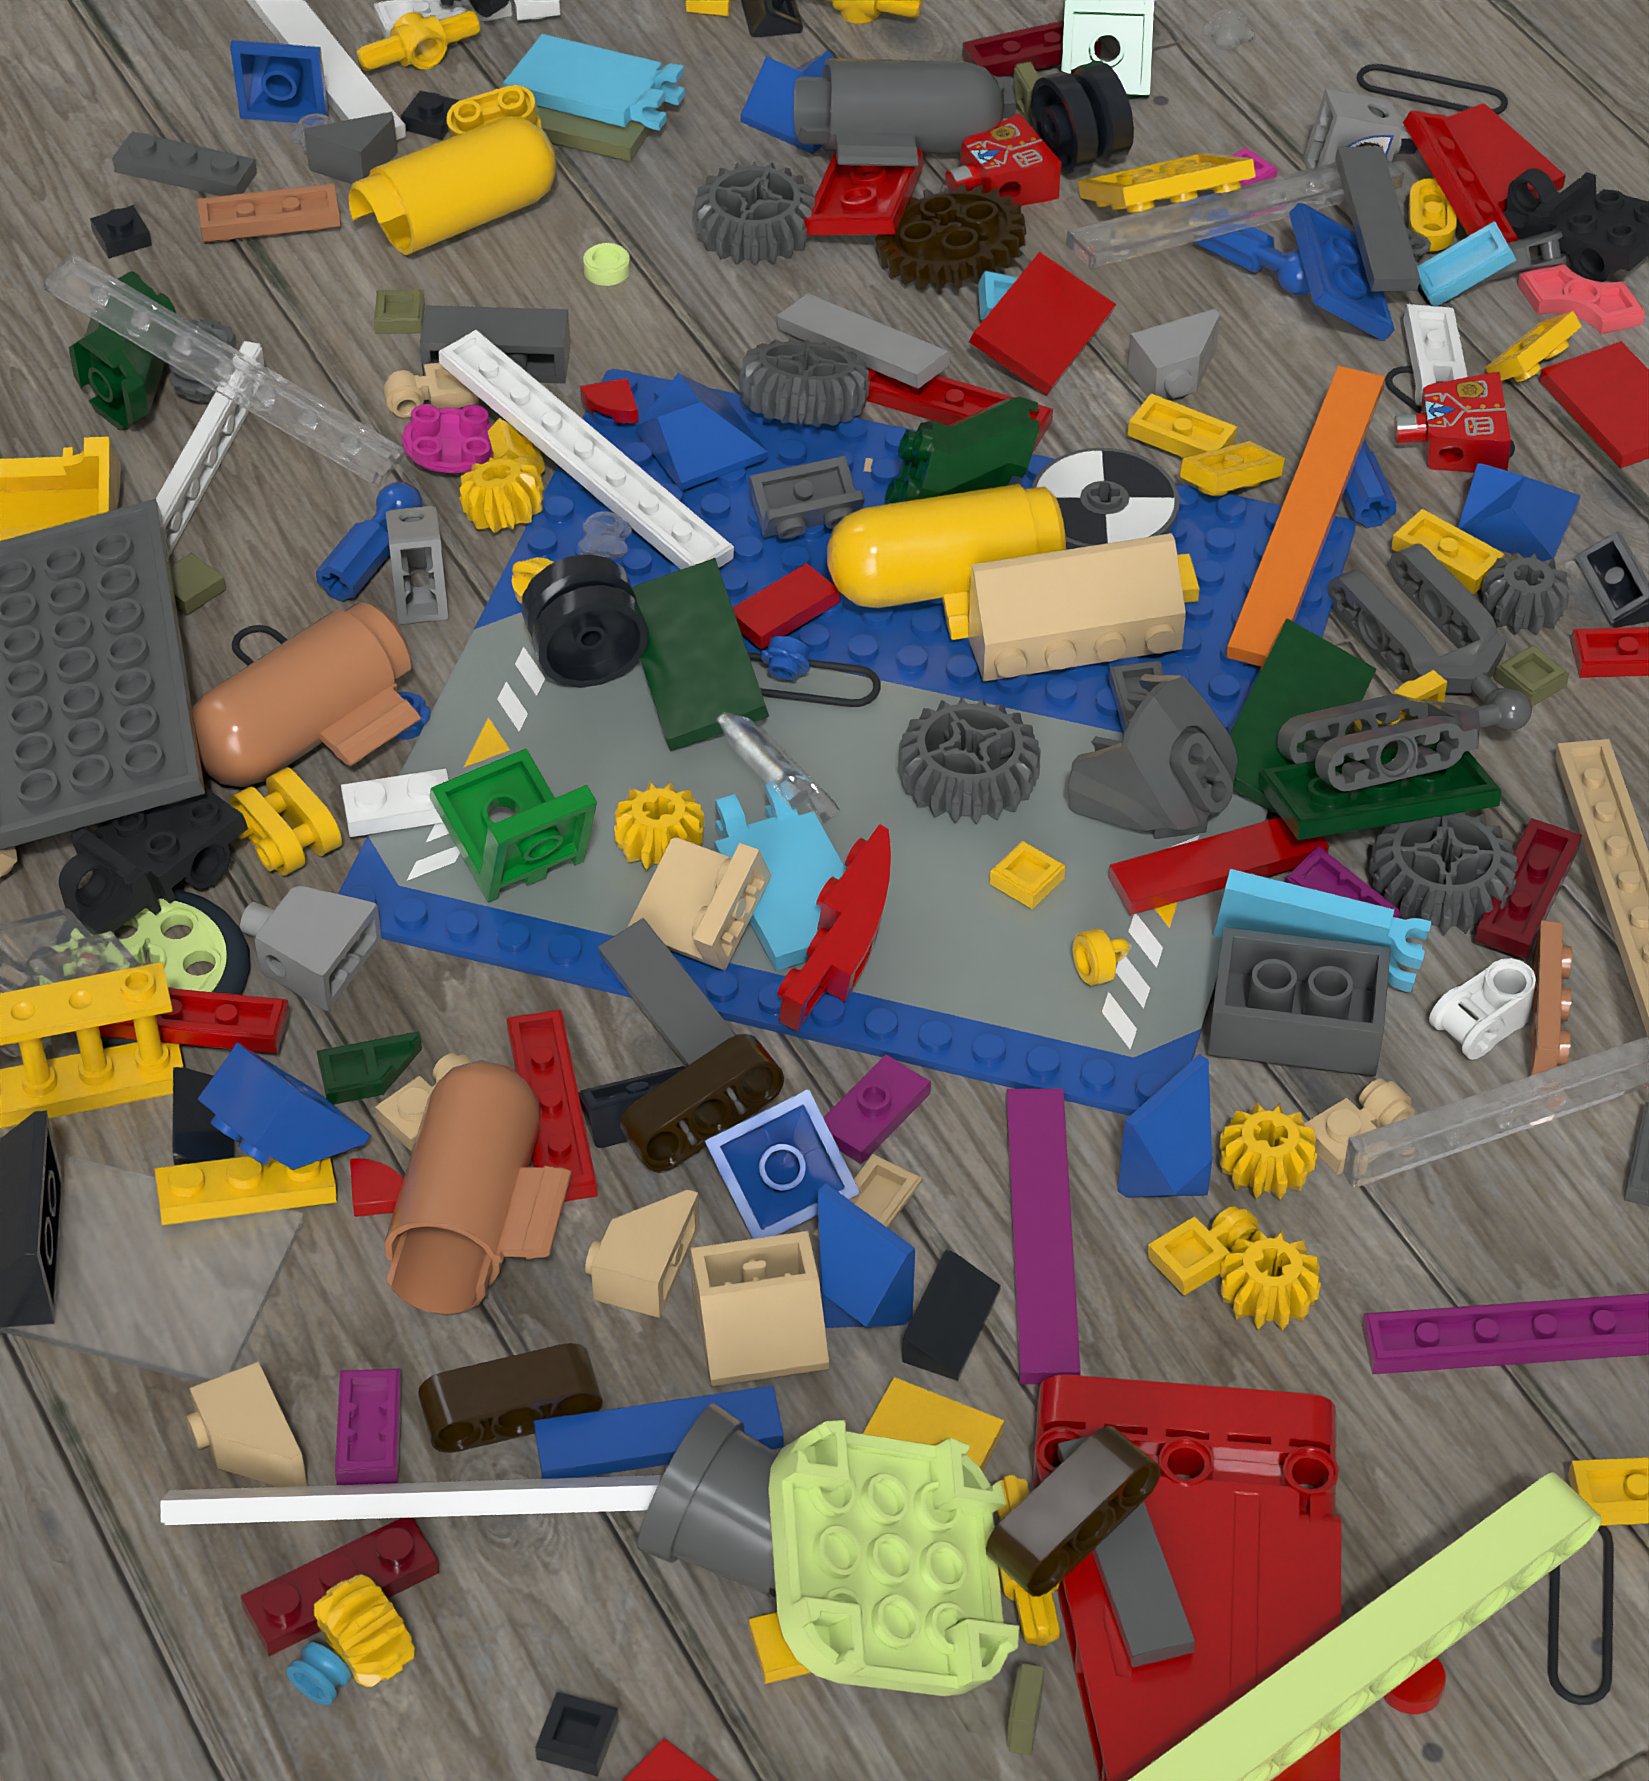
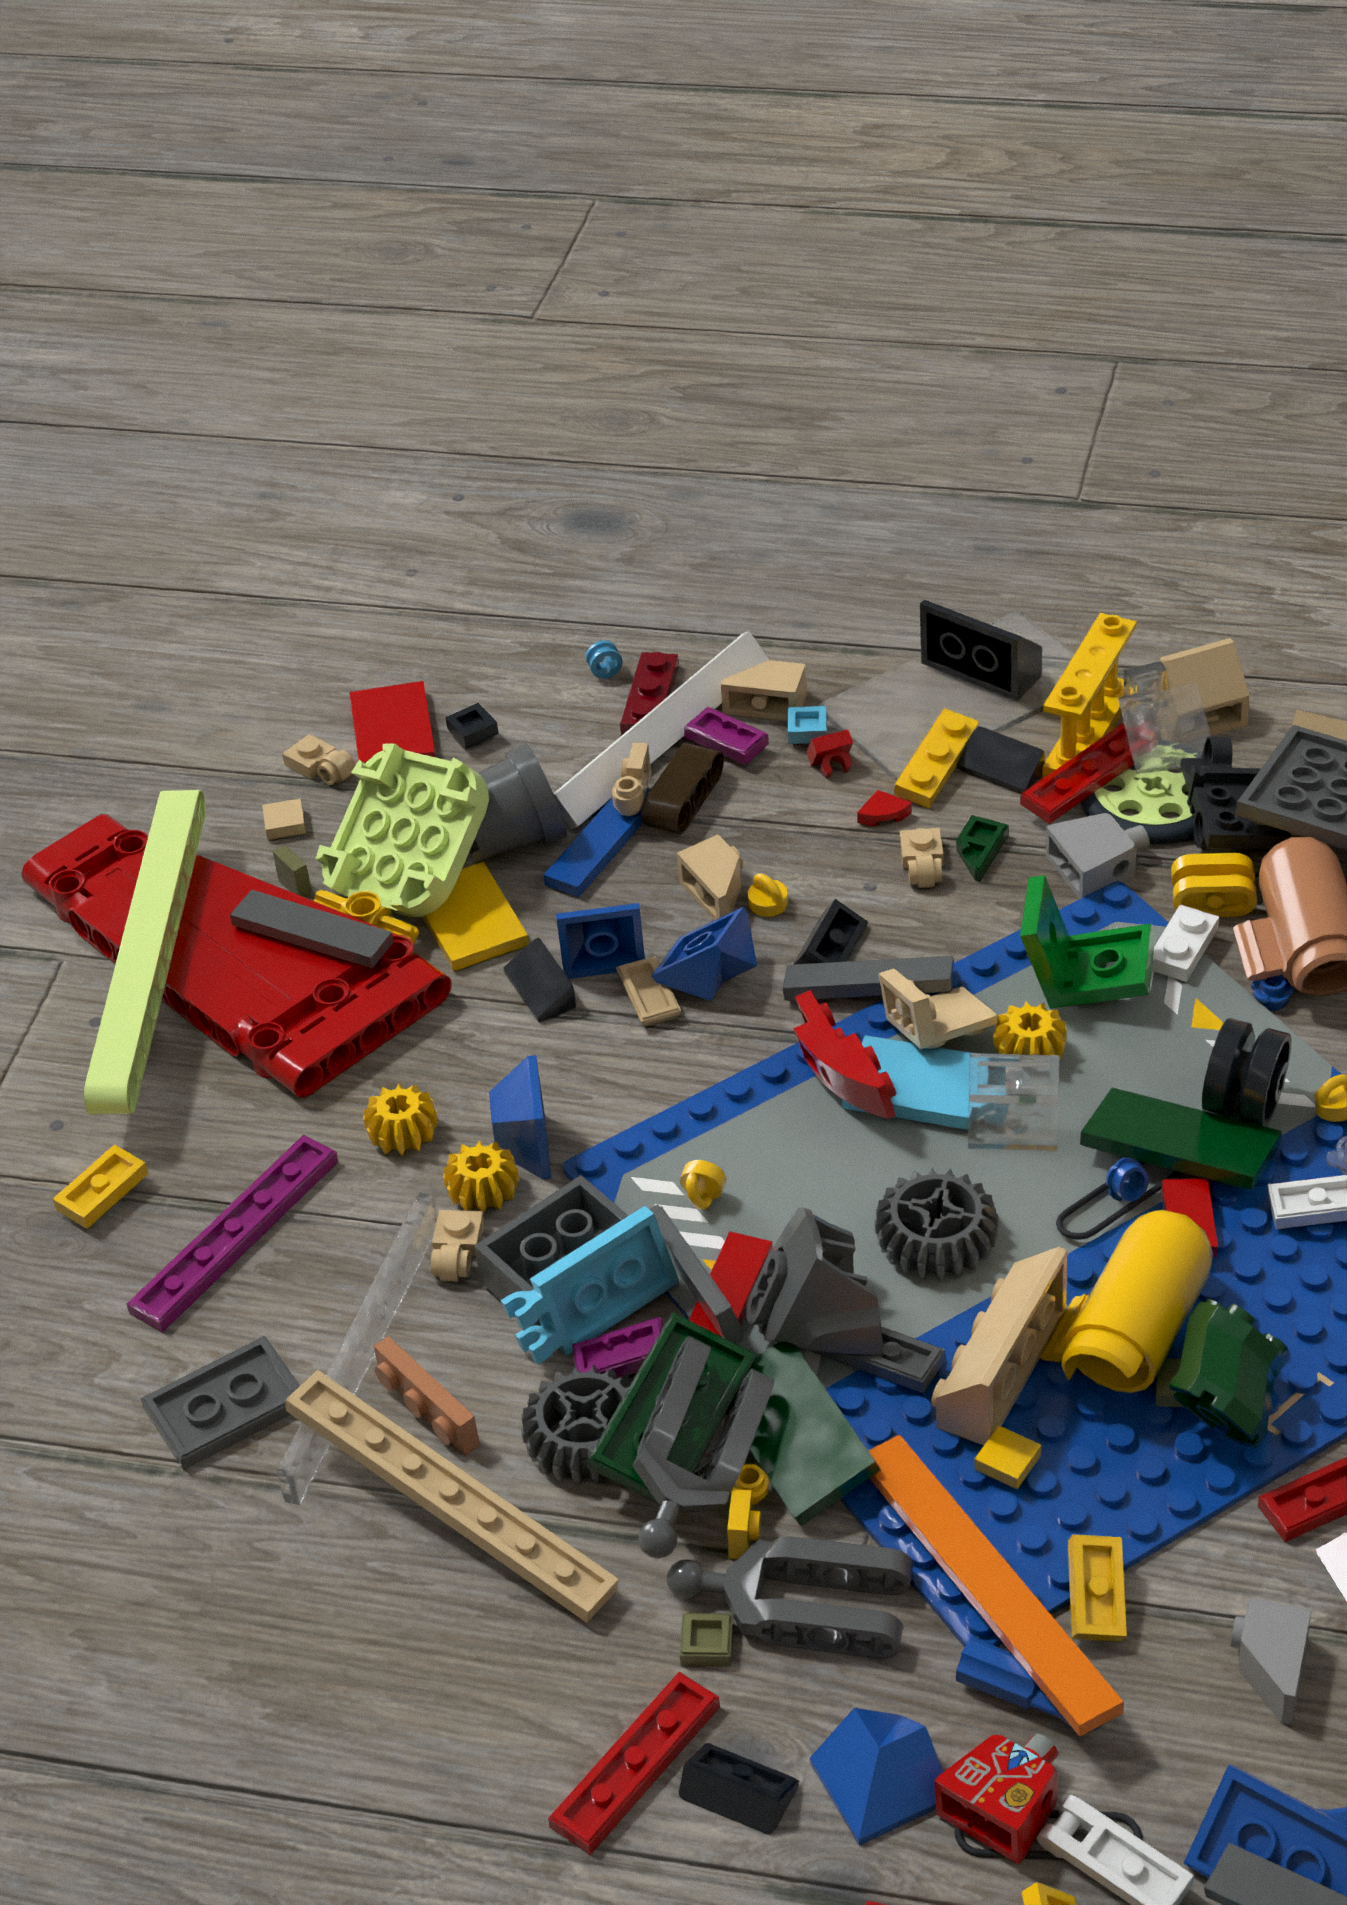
camera: 135 degrees right, 5 degrees down
(276, 1113) = (956, 770): blue slope -> none
(283, 1351) = (806, 724): none -> medium azure plate
(317, 1290) = (831, 748): none -> red tile
(364, 1630) = (600, 669): yellow gear -> none
(471, 1191) = (829, 815): nougat piece -> none
(545, 1063) = (878, 906): red tile -> none
(547, 1427) = (631, 788): none -> tan plate
(619, 1195) = (767, 896): none -> yellow tile
(701, 1102) = (783, 937): dark brown beam -> none
(759, 1308) = (636, 878): tan slope -> none
(804, 497) = (1286, 1280): dark grey bracket -> none
(876, 1107) = (716, 1034): magenta plate -> none
(1027, 874) = (818, 1198): yellow tile -> none
(1042, 1235) = (556, 1056): magenta tile -> none
(1073, 1511) = (340, 898): dark brown beam -> none
(1138, 495) = (1135, 1506): piece -> none
(1179, 428) = (1180, 1598): yellow plate -> none
(1195, 1254) = (456, 1102): yellow plate -> none
(1227, 858) = (698, 1279): none -> dark grey tile
(1458, 551) = (877, 1676): yellow plate -> none
(1487, 1006) = (458, 1360): white piece -> none
(1525, 593) = (780, 1686): dark grey gear -> none
(1543, 864) = (530, 1486): dark red plate -> none
(1607, 1629) = (63, 1134): black piece -> none

